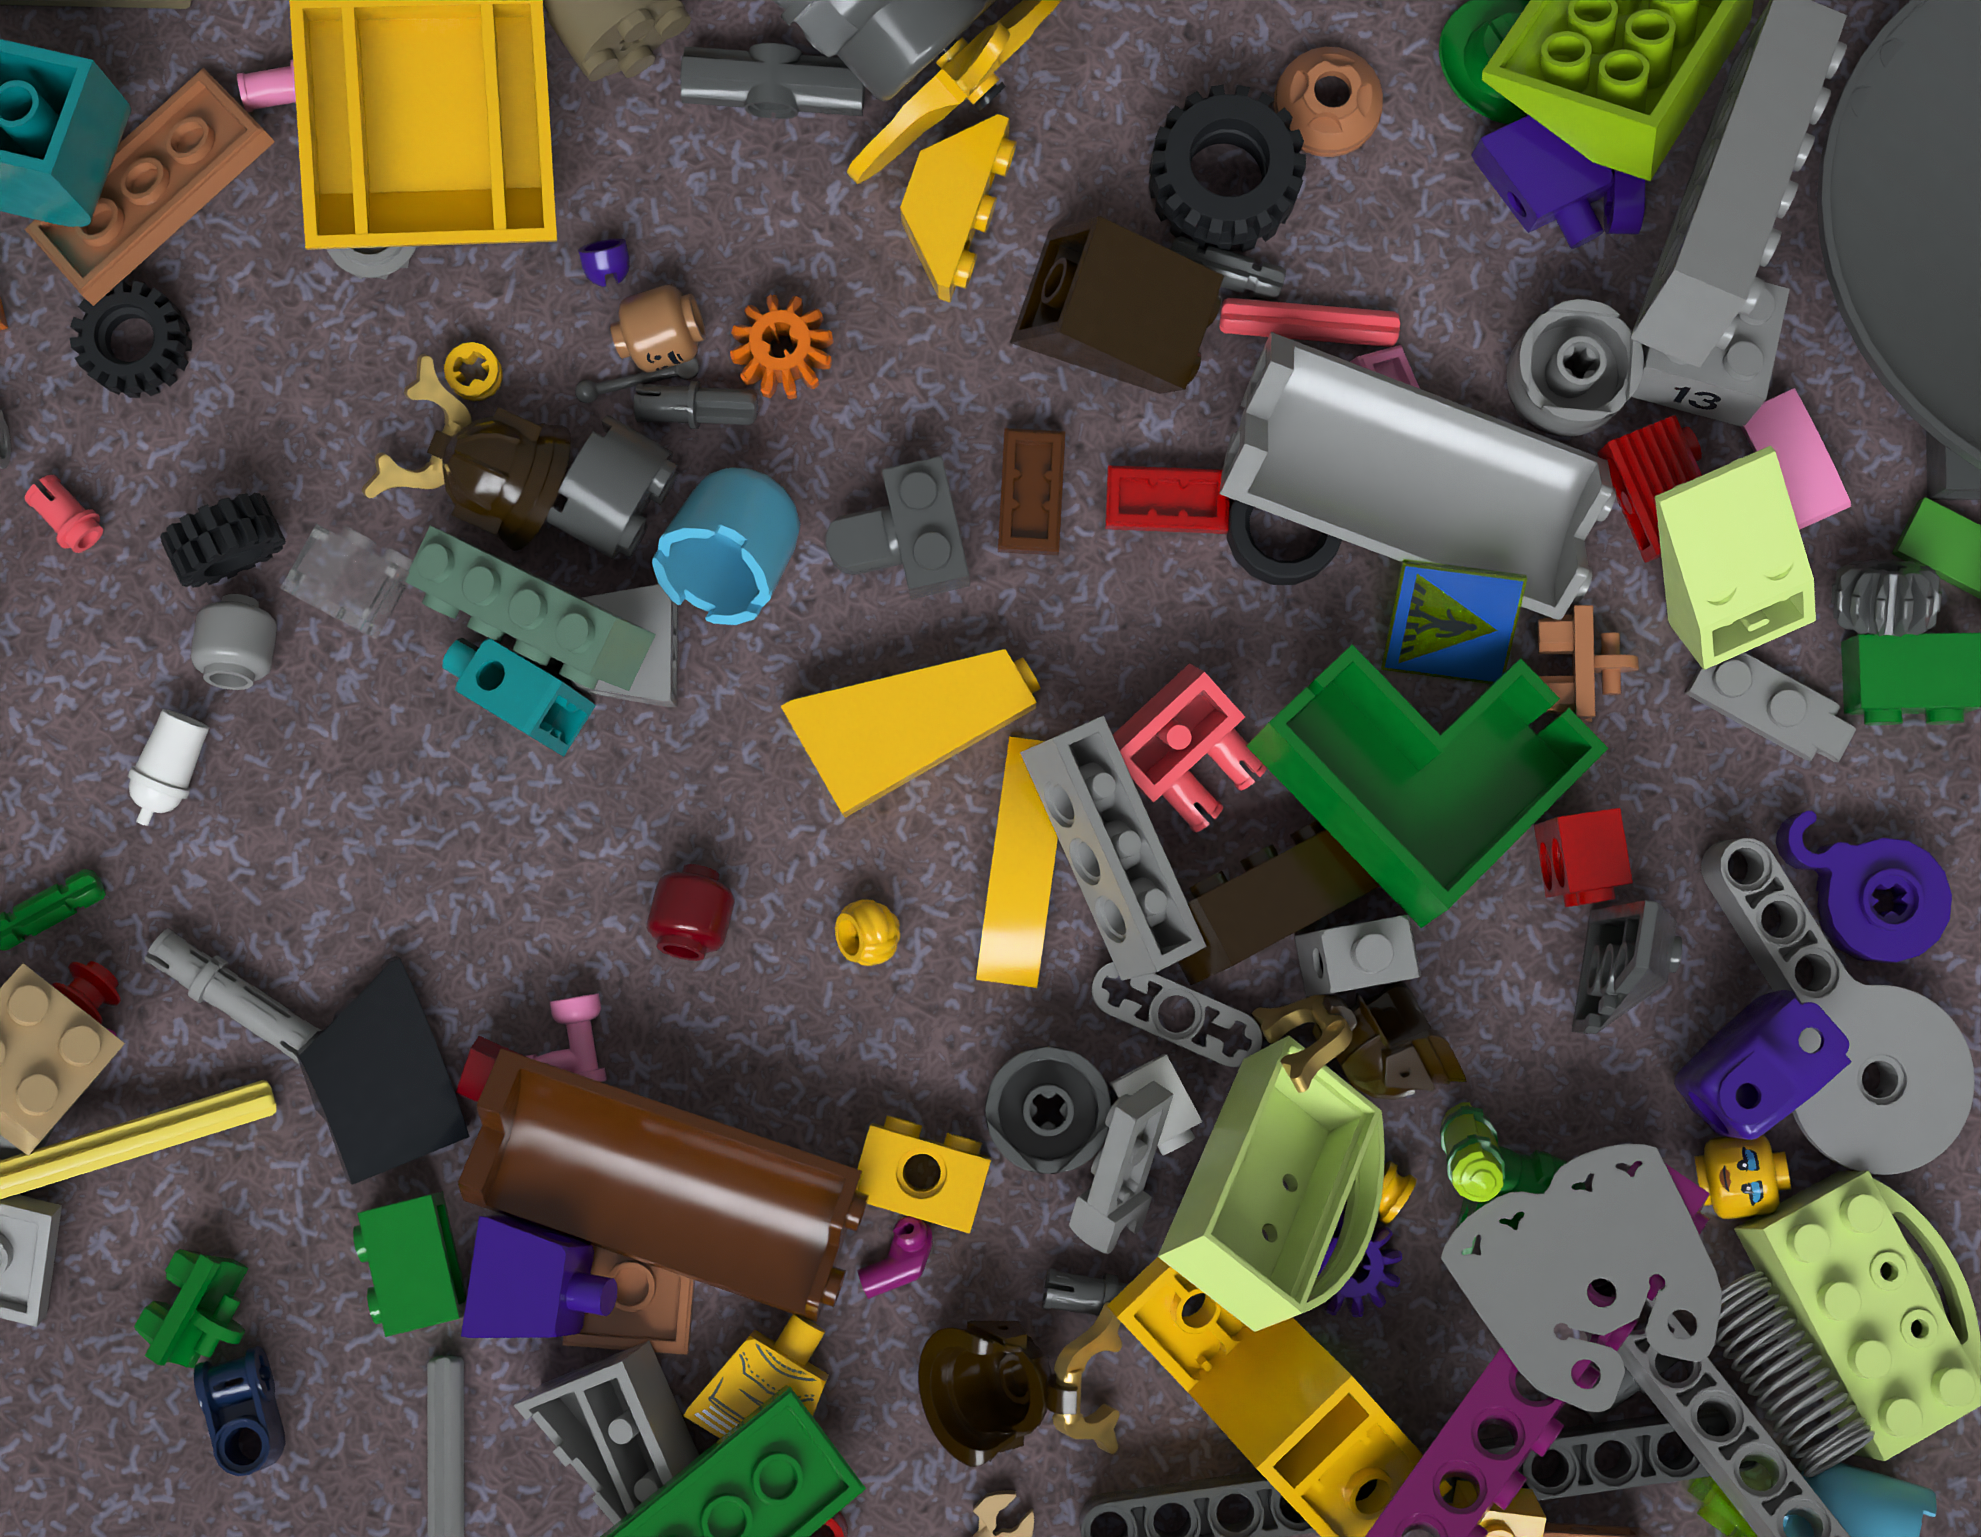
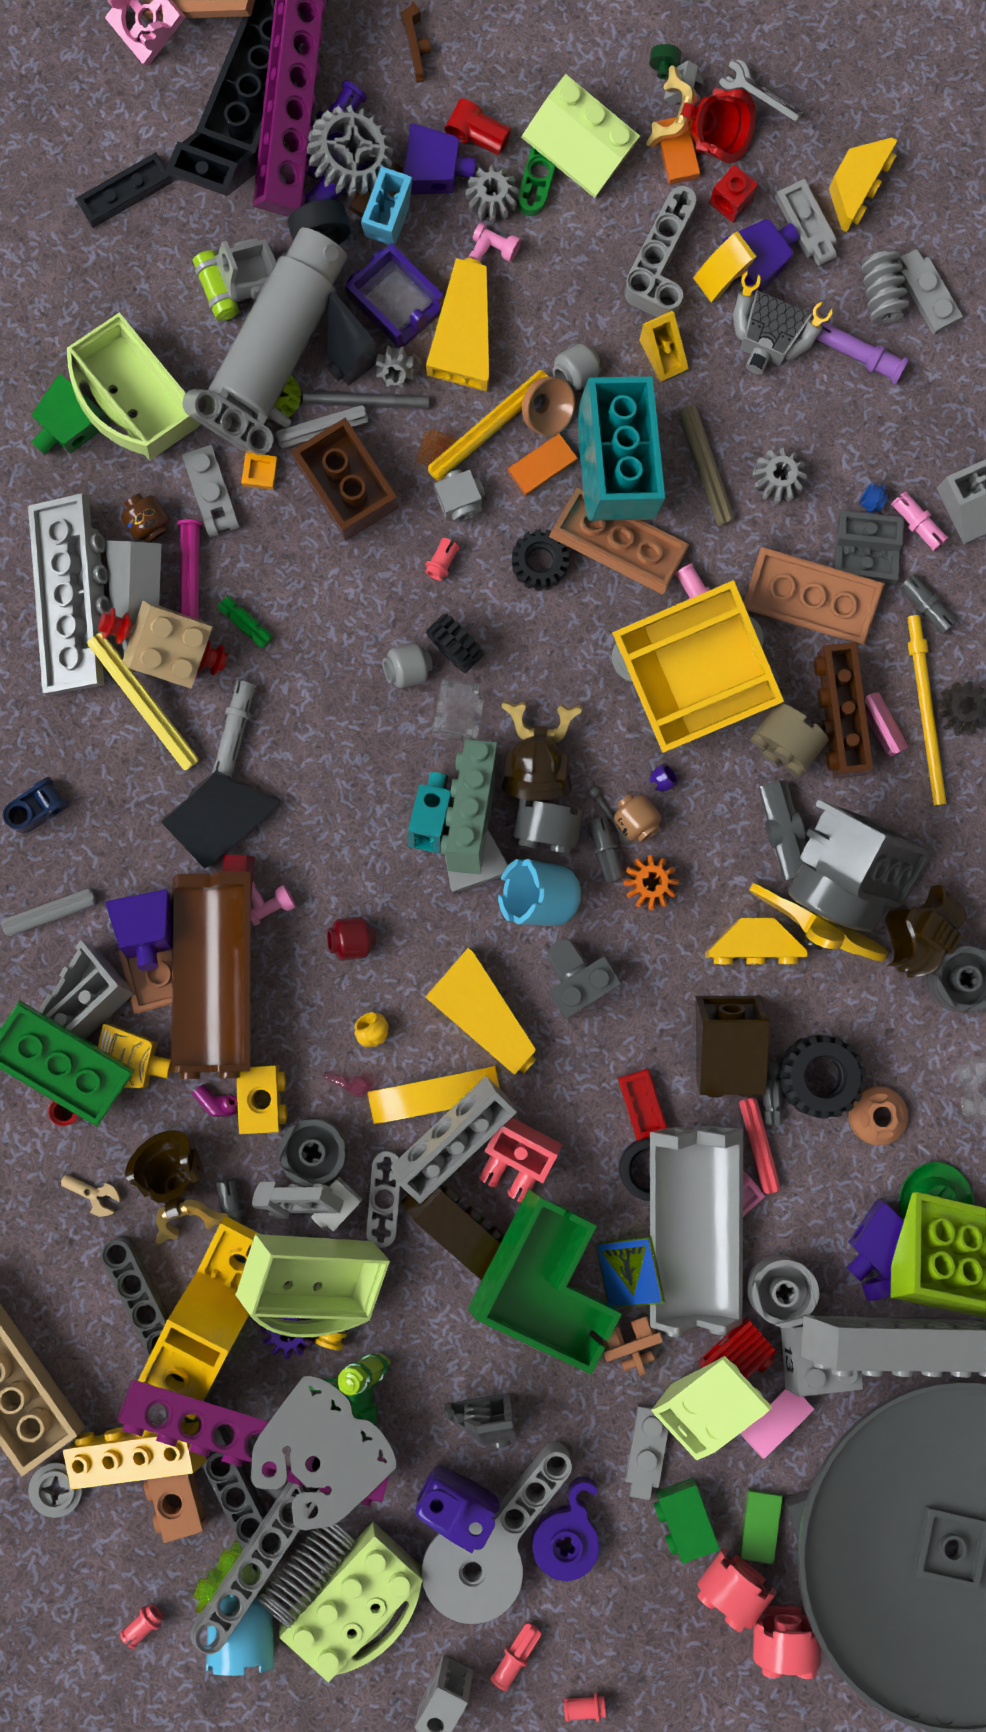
camera: 65 degrees right, 0 degrees up
(166, 764) = (336, 655): white piece -> none
(199, 1313) = (75, 770): green hips -> none
(411, 1264) = (133, 863): green brick -> none
(478, 389) = (592, 727): yellow bush -> none
(962, 994) = (357, 1087): none -> clear pink hand
(1031, 491) = (622, 1034): reddish brown plate -> none
(1358, 956) = (443, 1282): light grey torso -> none
(1377, 1042) = (403, 1307): dark brown helmet -> none
(1583, 856) = (532, 1380): red brick -> none
(1742, 1176) = (398, 1516): yellow head -> none
(1886, 597) = (721, 1493): dark grey gear -> none

